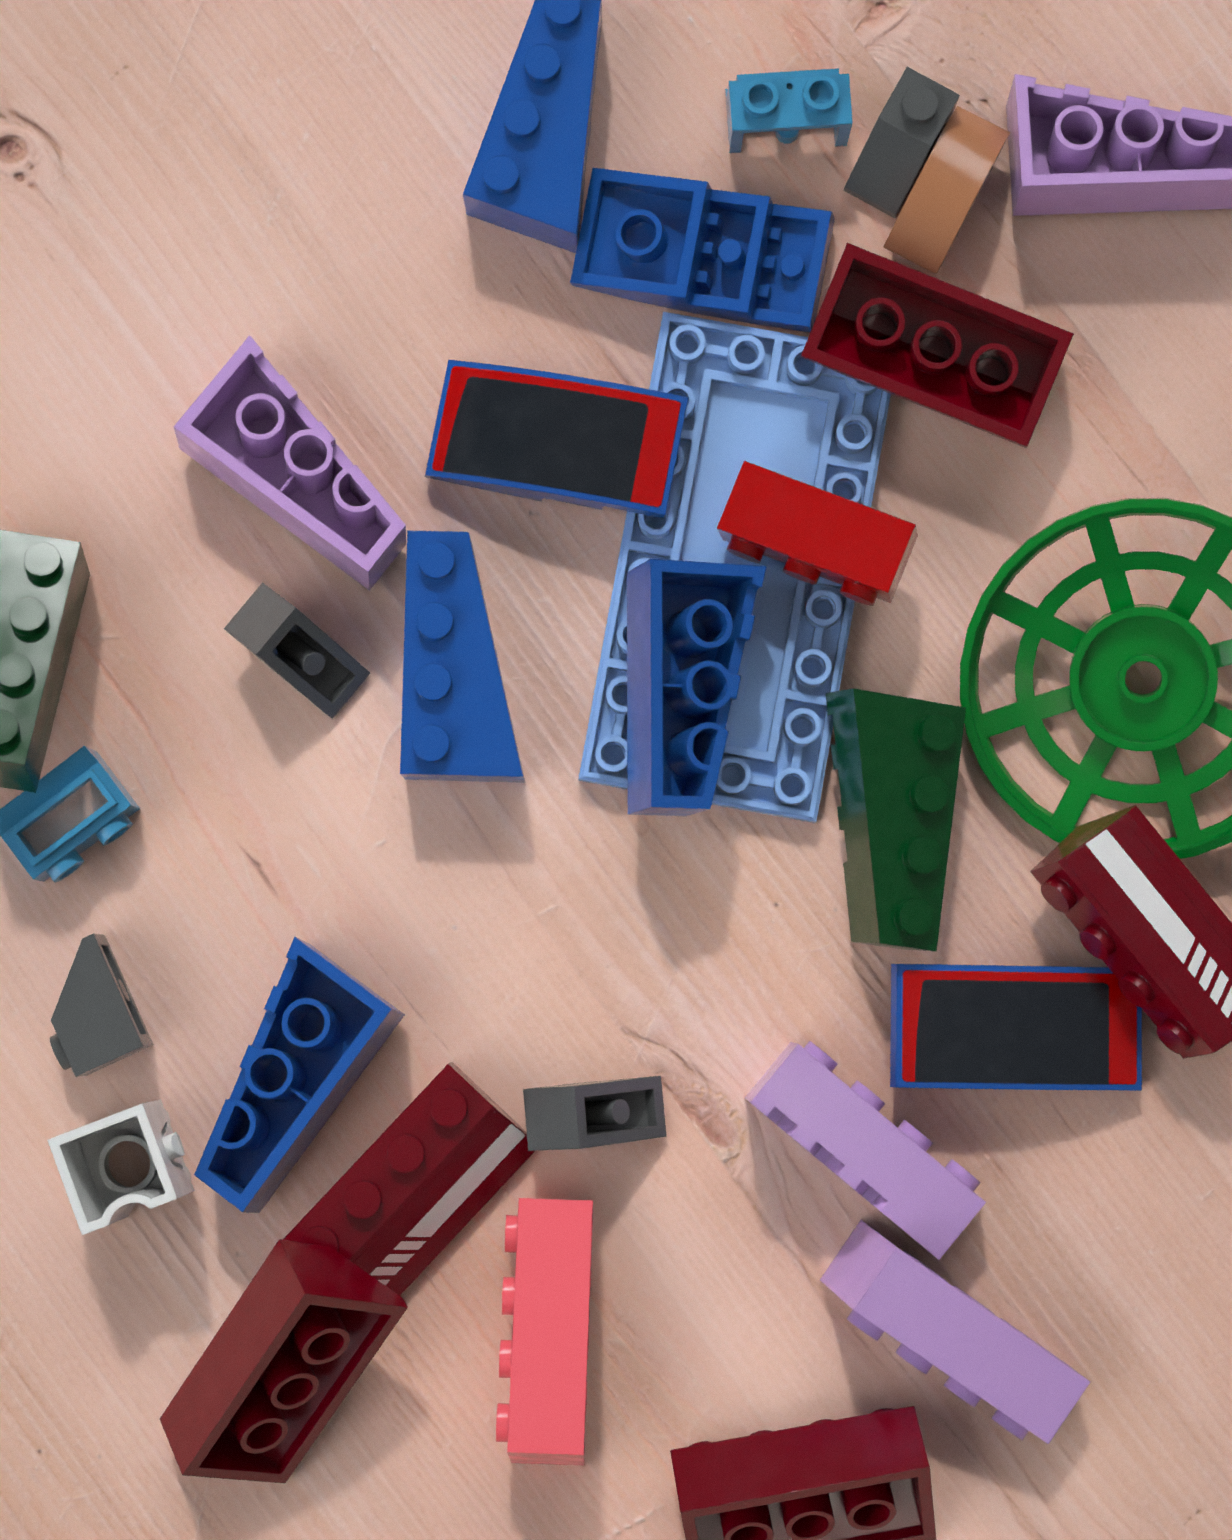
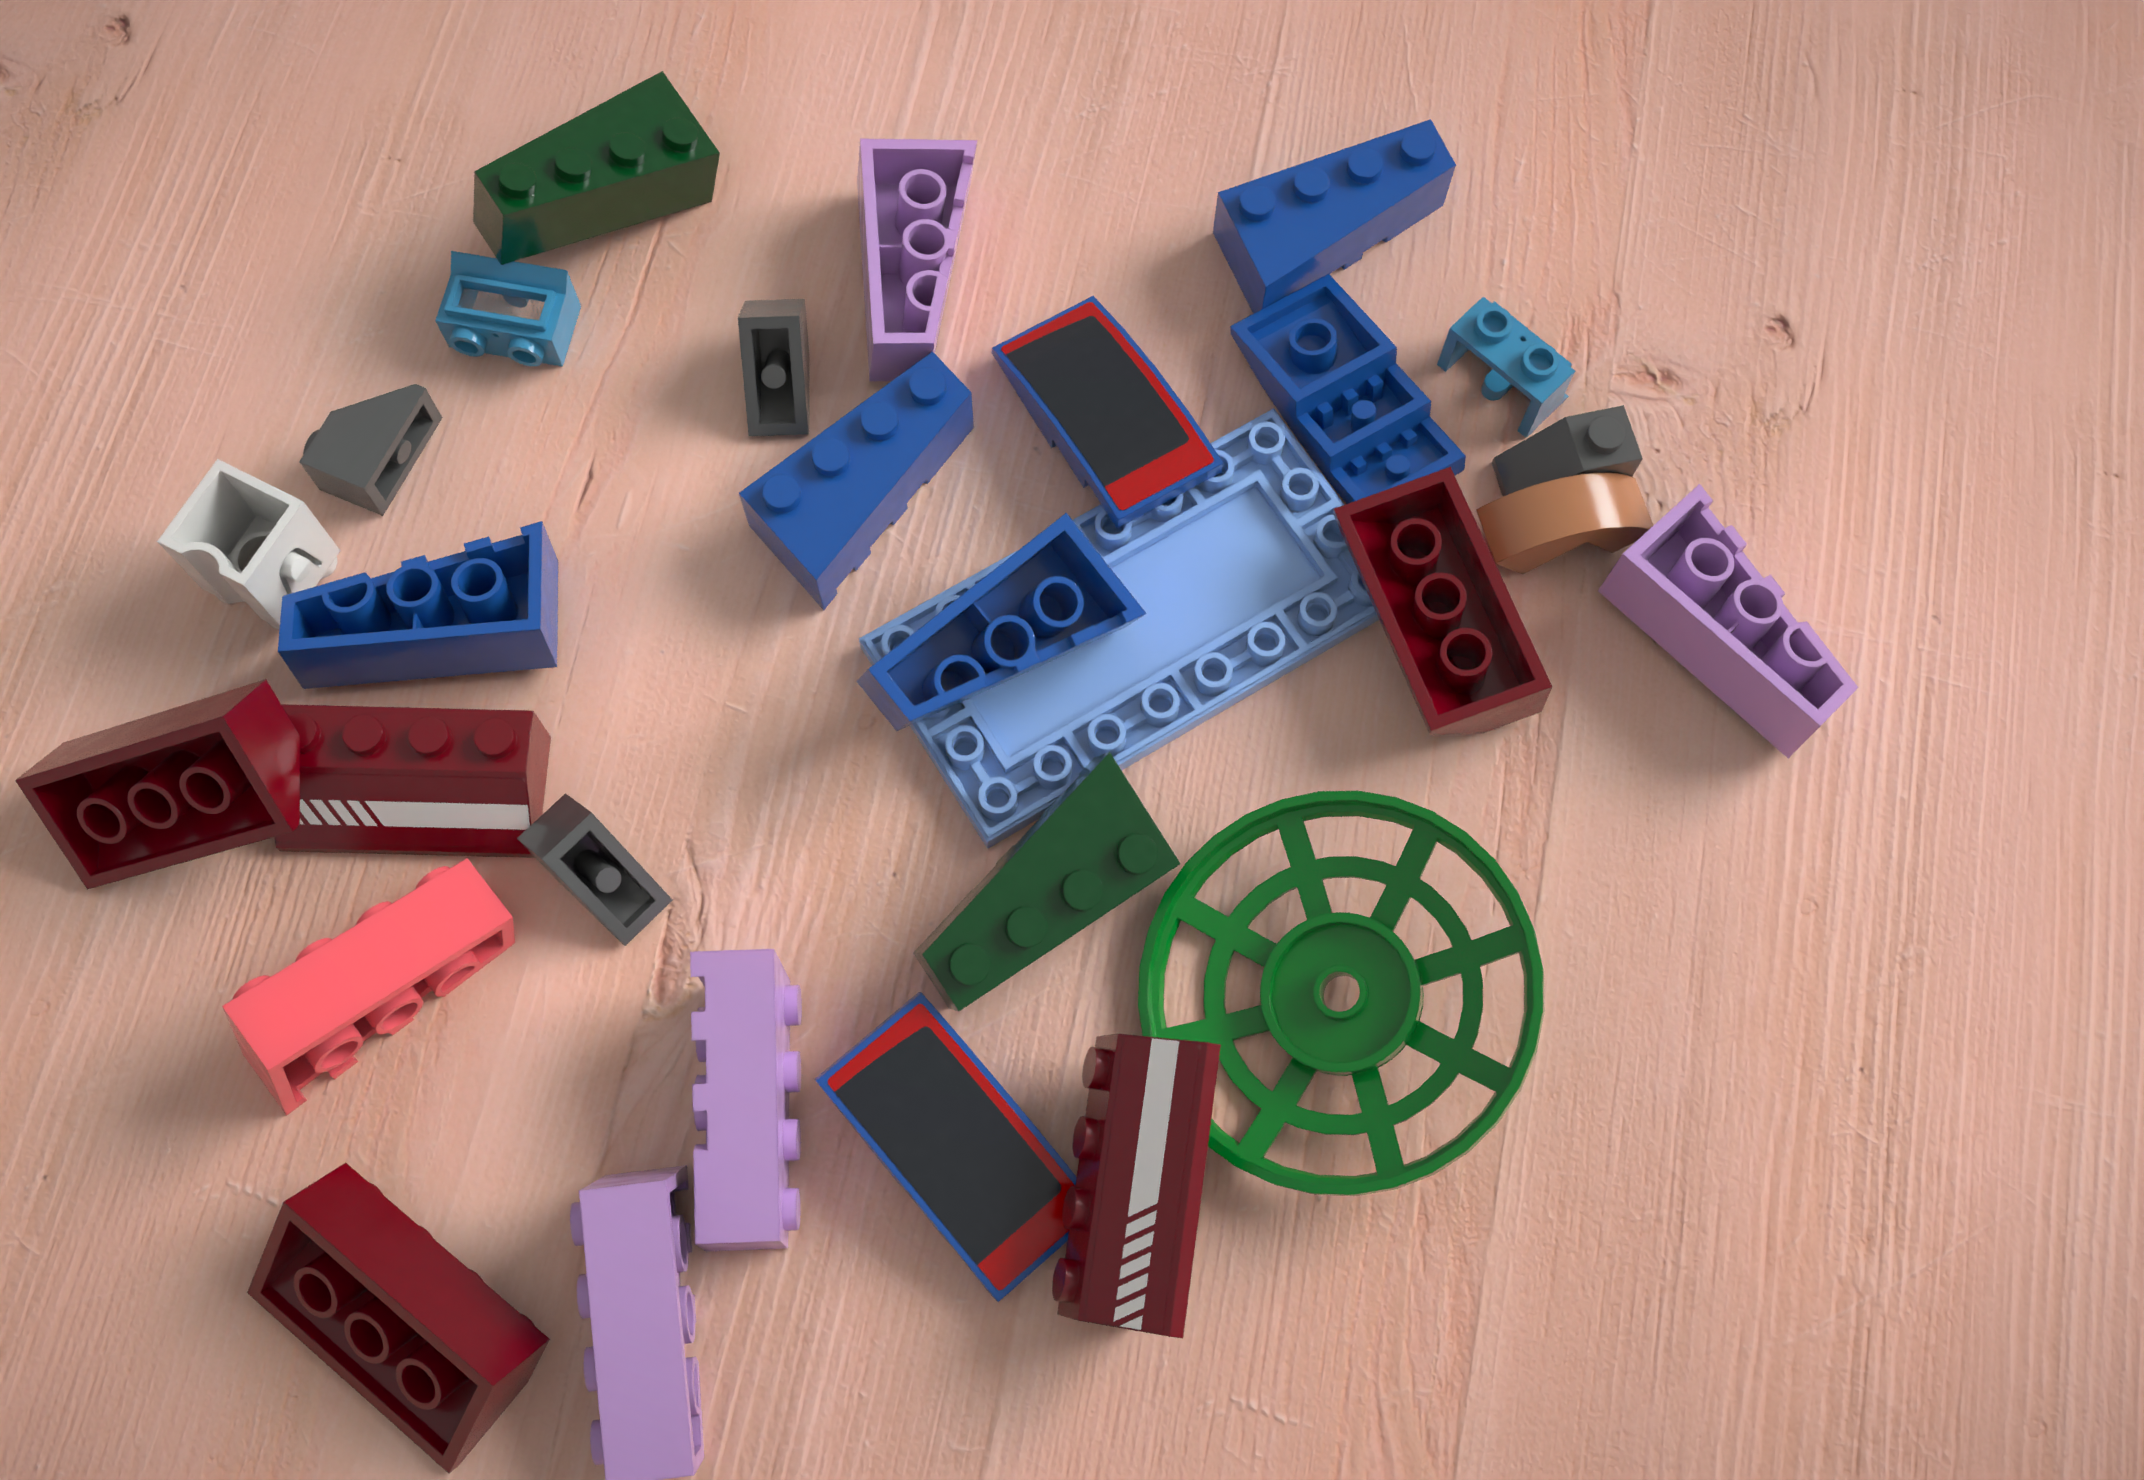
camera: 45 degrees right, 15 degrees down
(816, 534) = (1210, 638): red brick -> none

